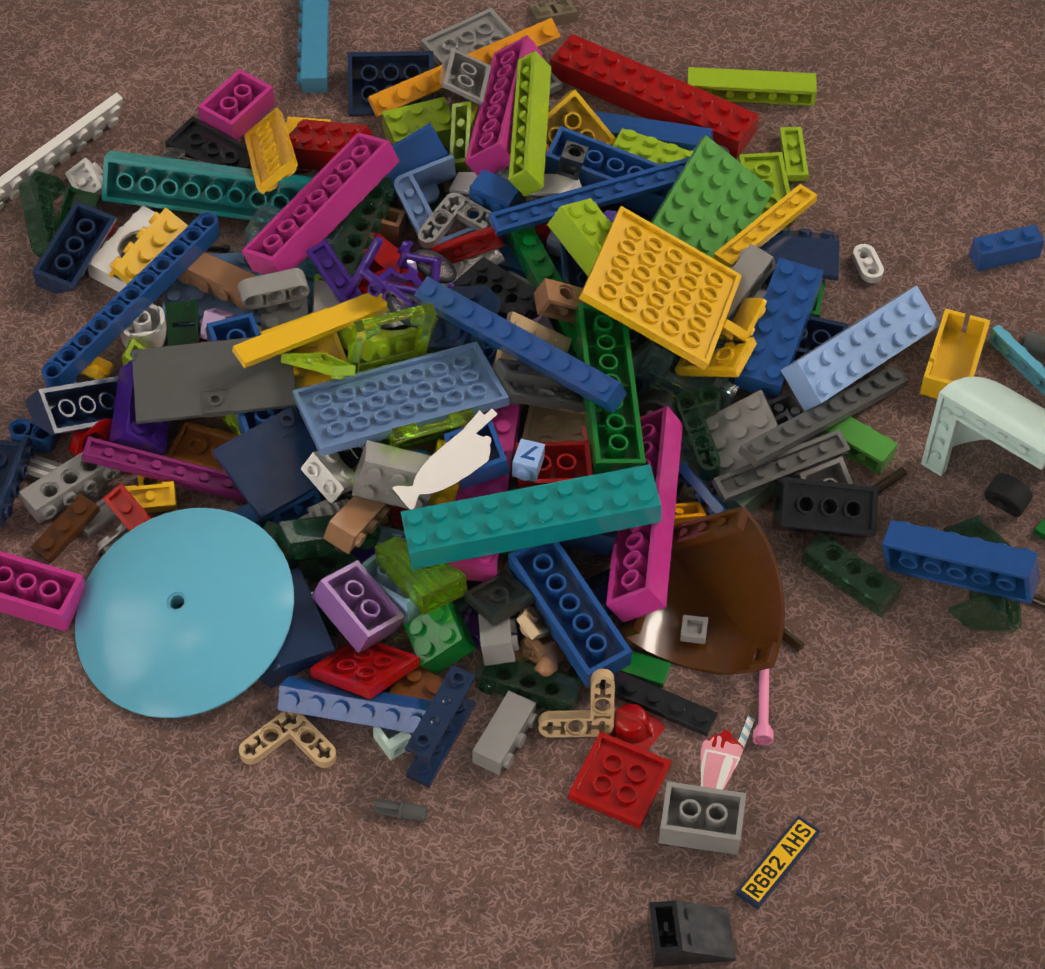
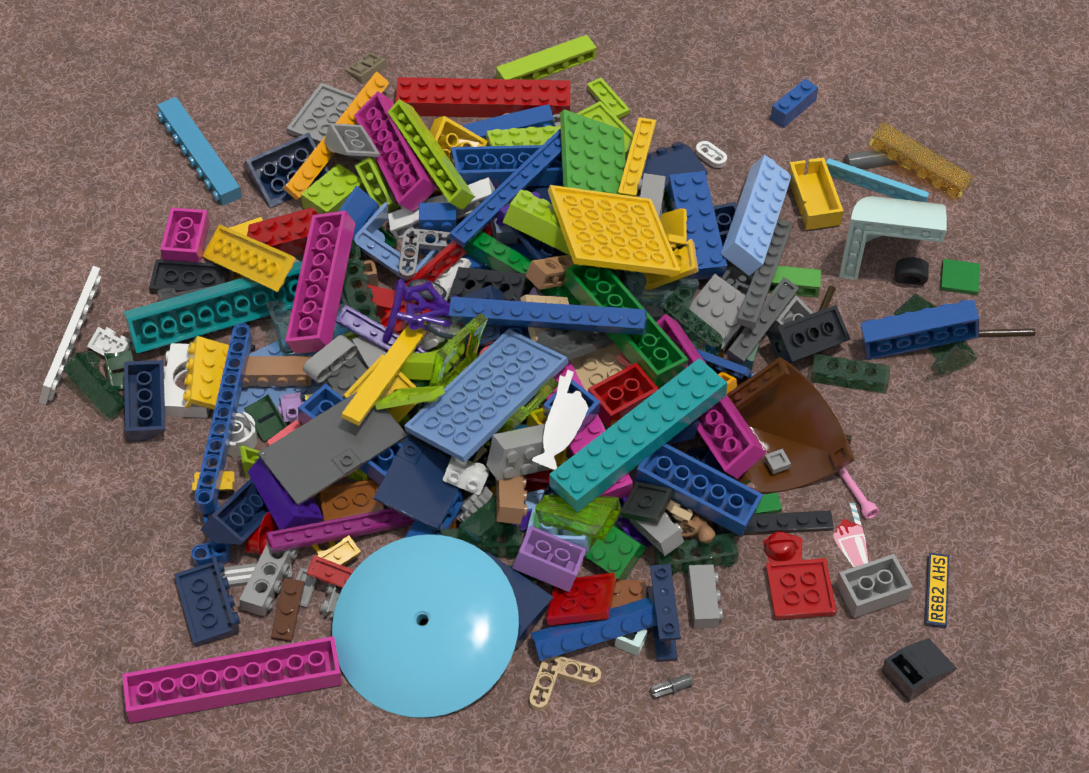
camera: 30 degrees left, 0 degrees up
(528, 460) = (609, 395): light blue brick -> none
(572, 160) = (481, 168): black brick -> none
(595, 714) = (757, 557): tan beam -> none

